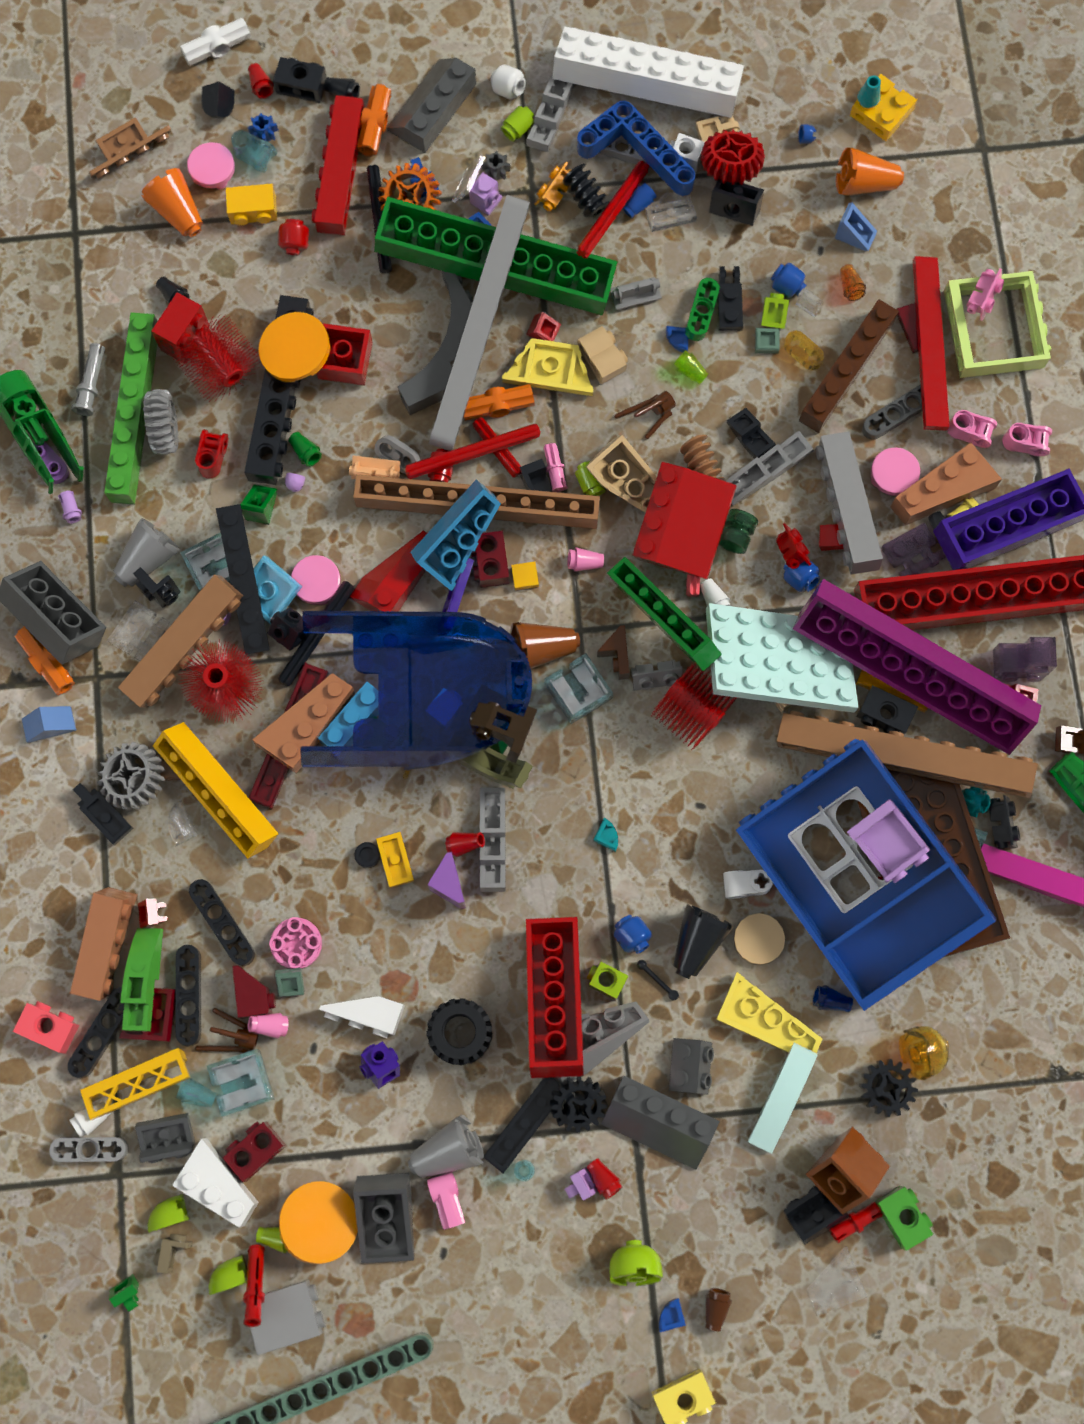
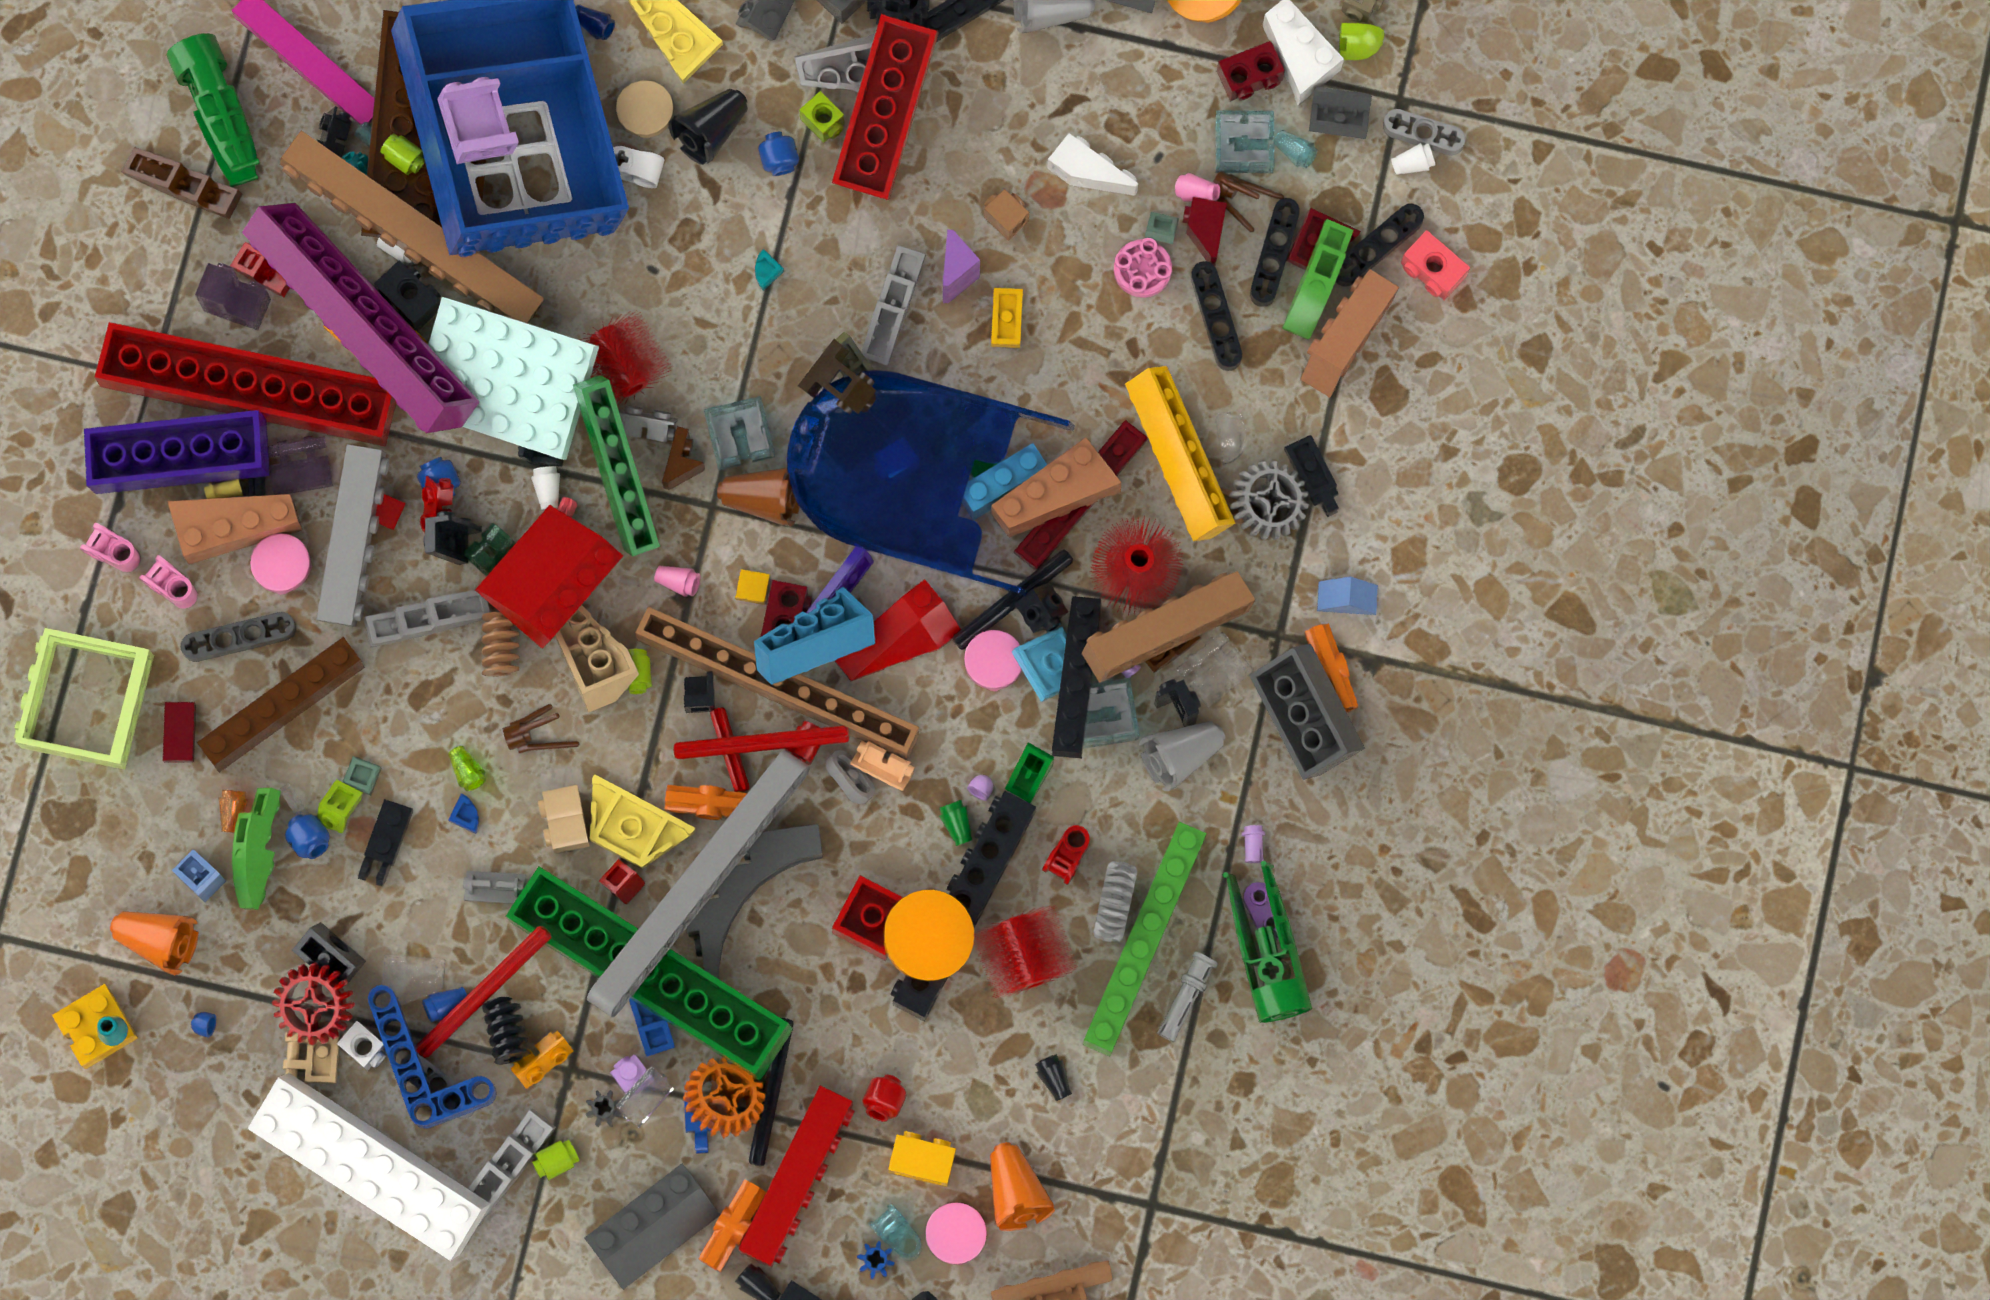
camera: 165 degrees left, 0 degrees up
(133, 1077) = (1355, 186): yellow fence -> none
(148, 913) = (1292, 348): tile -> none
(179, 320) = (1056, 1013): red brick -> none
(367, 855) = (1035, 335): black tile -> none
(380, 1064) = (1084, 103): dark purple brick -> none
(424, 949) = (1006, 213): none -> medium nougat brick
(443, 1015) = (997, 93): black tyre -> none
(462, 843) = (927, 308): red cone -> none
(508, 82) = (547, 1219): white head -> none
(555, 468) = (672, 700): bright pink axle -> none
(673, 994) = (758, 85): black hinge -> none
(695, 316) = (411, 838): green beam -> none
(750, 434) = (427, 665): black slope -> none
(774, 525) = (448, 536): none -> black bracket
(803, 350) = (317, 750): clear yellow beam -> none
(824, 254) = (249, 857): none -> bright green slope
(930, 344) = (172, 701): red tile -> none
(940, 816) = (403, 154): none -> lime brick
(990, 285) = (77, 735): bright pink hinge -> none

